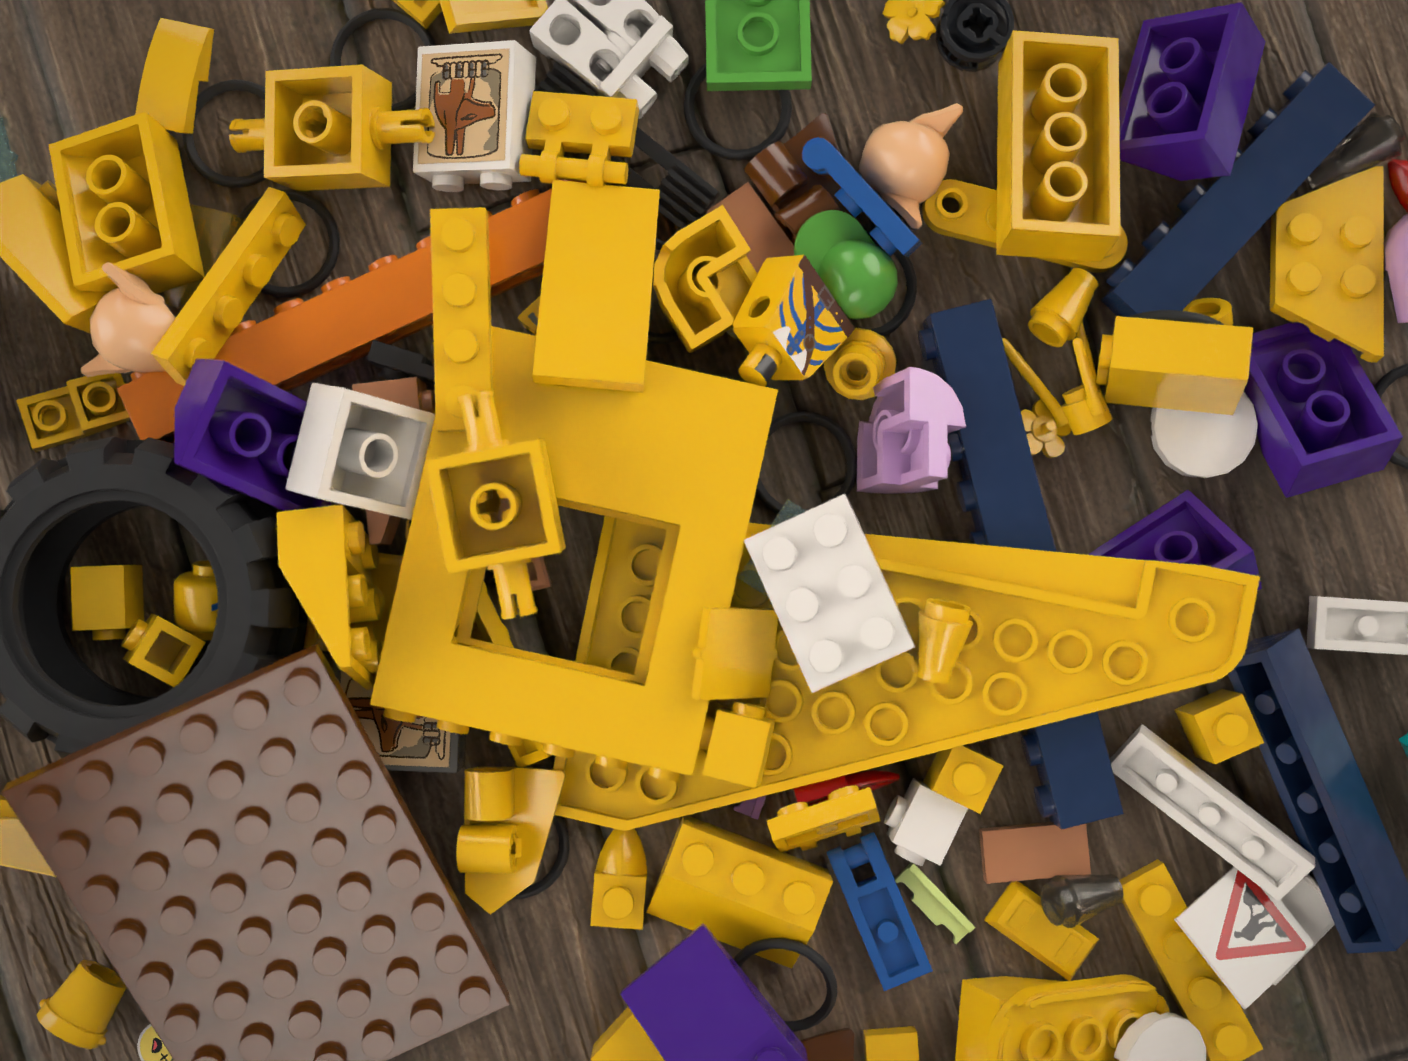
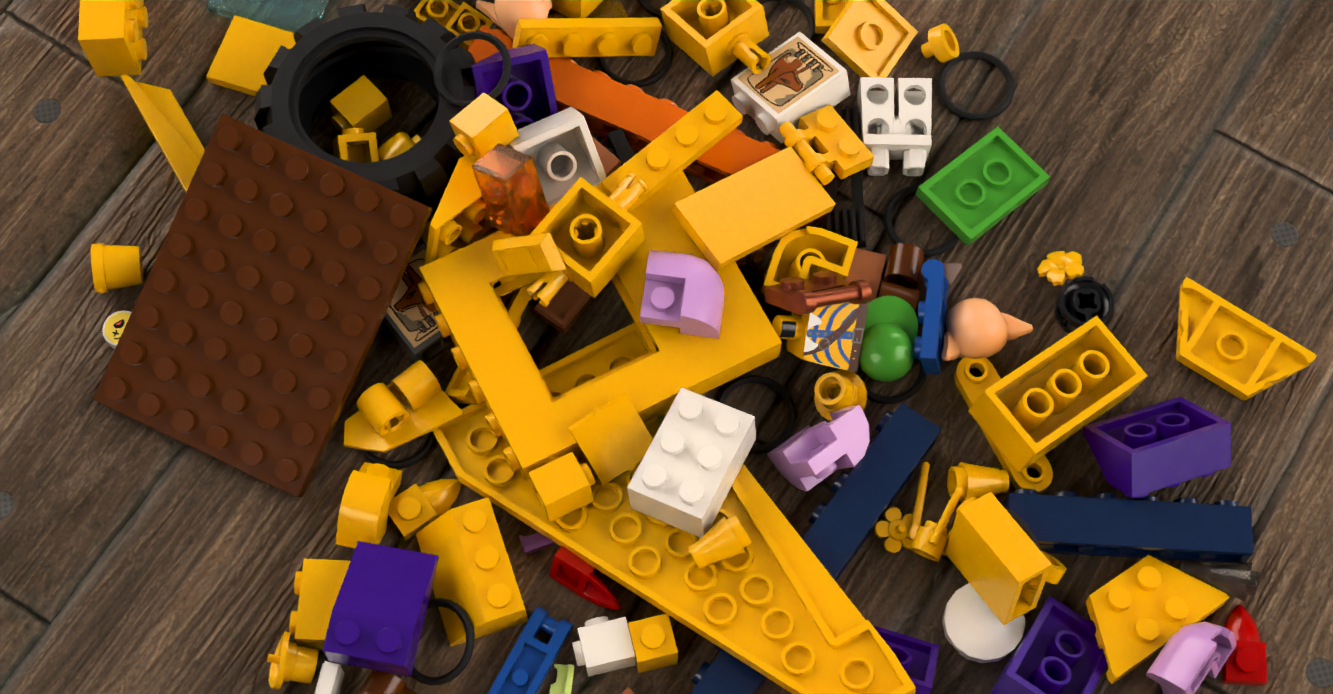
camera: 50 degrees right, 20 degrees down
(215, 429) = (456, 41): none -> black tyre
(266, 514) = (482, 127): none -> yellow brick
(371, 544) = (511, 190): none -> clear orange brick
(466, 590) = (527, 254): none -> yellow tile
(578, 945) = (366, 504): none -> yellow brick
(641, 451) = (682, 294): none -> lavender brick
(758, 308) = (820, 291): none -> copper plate
(804, 825) = (557, 580): yellow plate -> none

